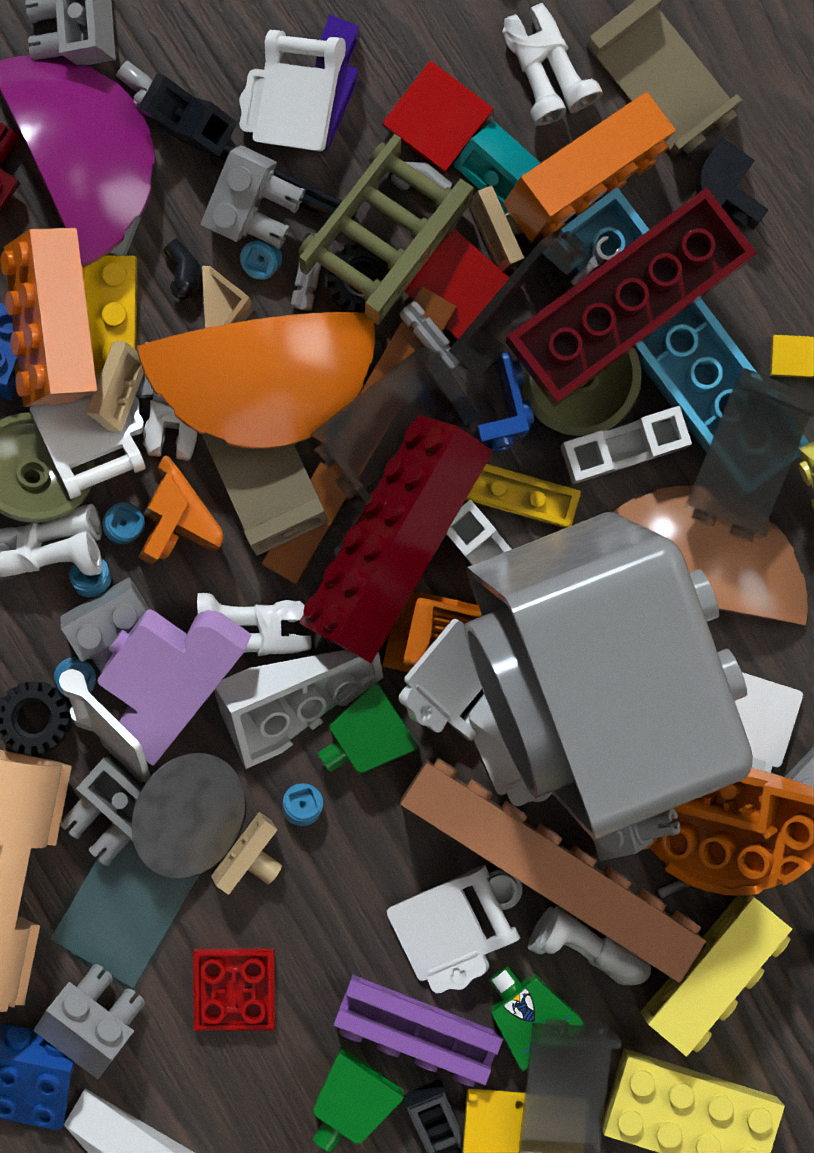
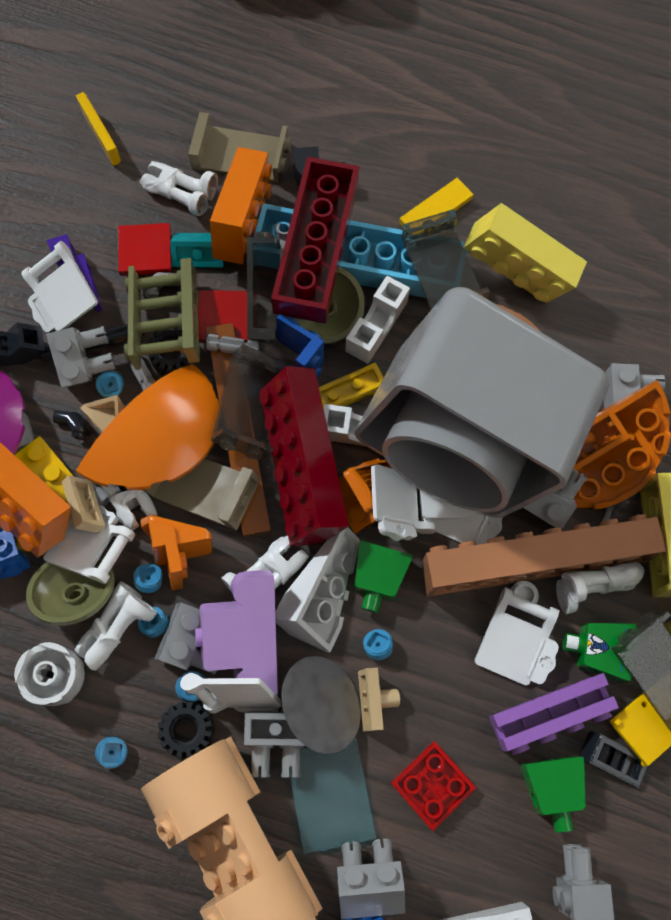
camera: 45 degrees left, 15 degrees down
(497, 229) = (220, 274): tan tile -> none

